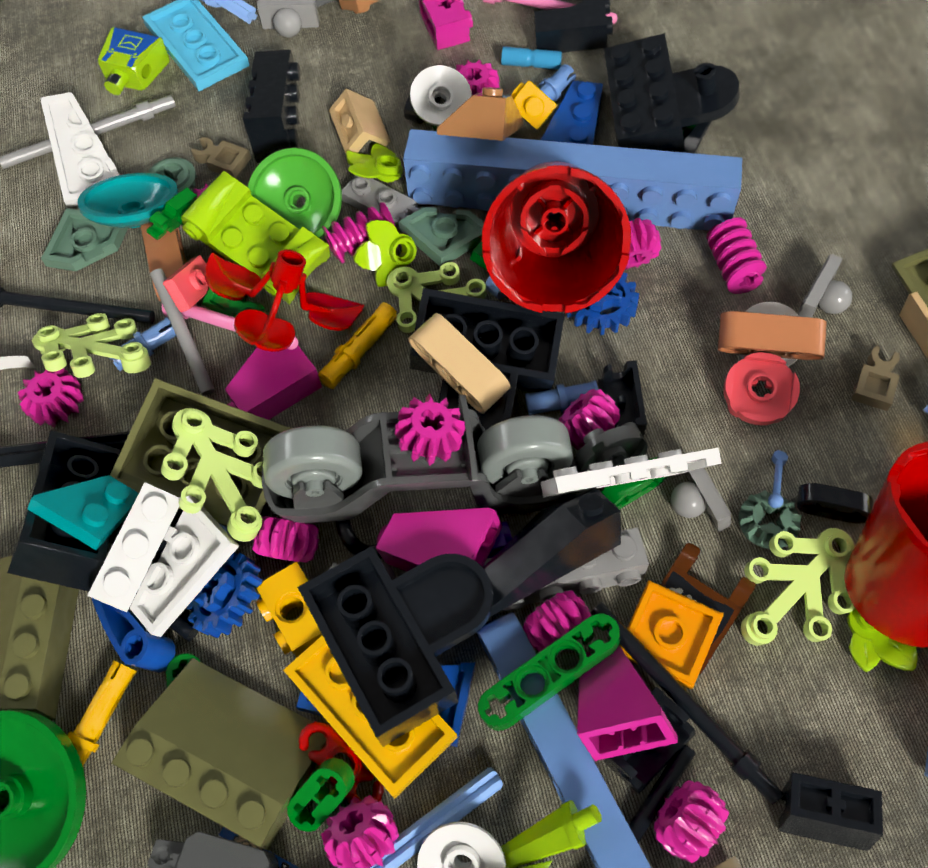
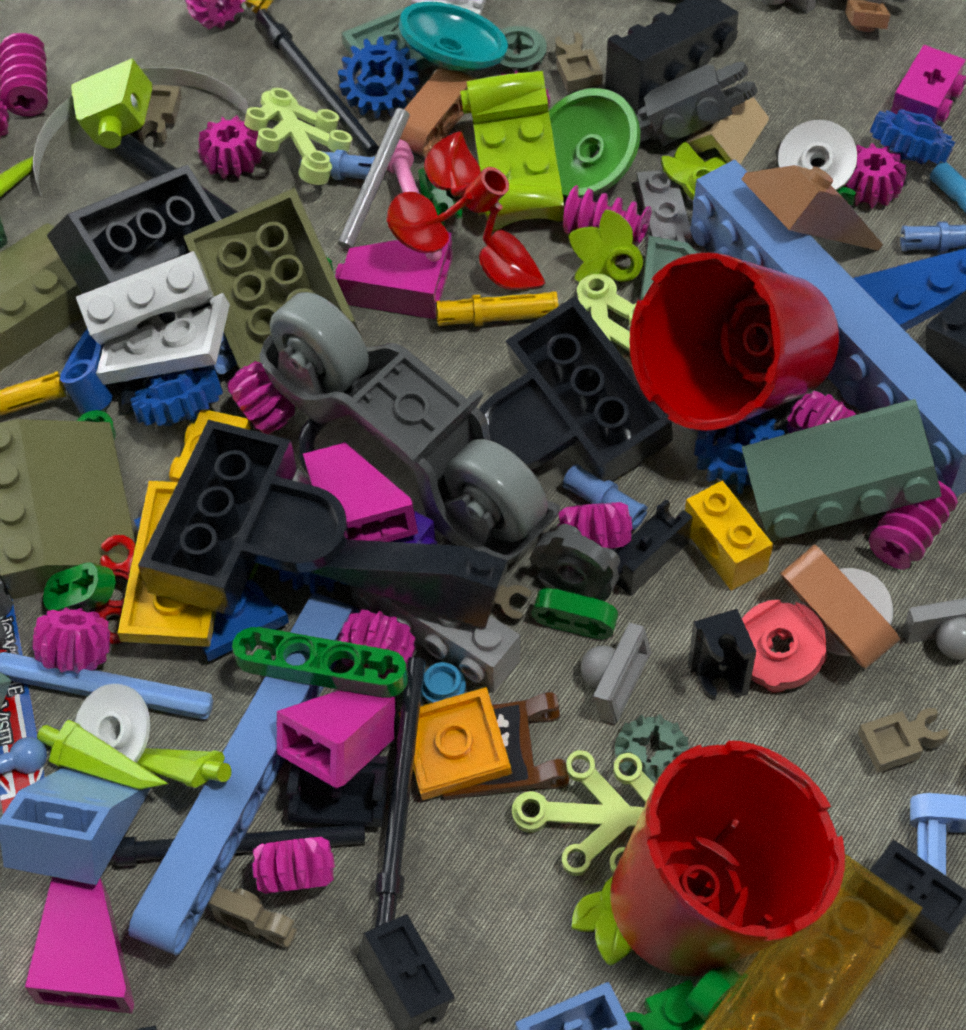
camera: 45 degrees right, 5 degrees down
(86, 509) = (140, 237): teal wing -> none
(93, 255) = (377, 82): none -> blue gear
(170, 217) = (456, 75): green plate -> none
(188, 284) = (412, 142): coral plate -> none
(217, 466) = (259, 285): yellowish green plant -> none
(331, 117) = (693, 102): none -> dark grey hinge
(429, 429) = (424, 375): dark pink gear -> none
(459, 363) = (530, 379): tan beam -> none
(472, 44) = (912, 136): none -> blue gear
(533, 103) = (900, 234): yellow bracket -> none
(619, 602) = (442, 682): none -> dark azure plate
(635, 469) = (565, 586): white wing -> none
(660, 353) = (728, 535): none -> yellow brick
(687, 257) = (842, 470): none -> sand green slope
(753, 420) = (722, 650): none -> black hinge
(779, 459) = (727, 716): medium blue hinge -> none

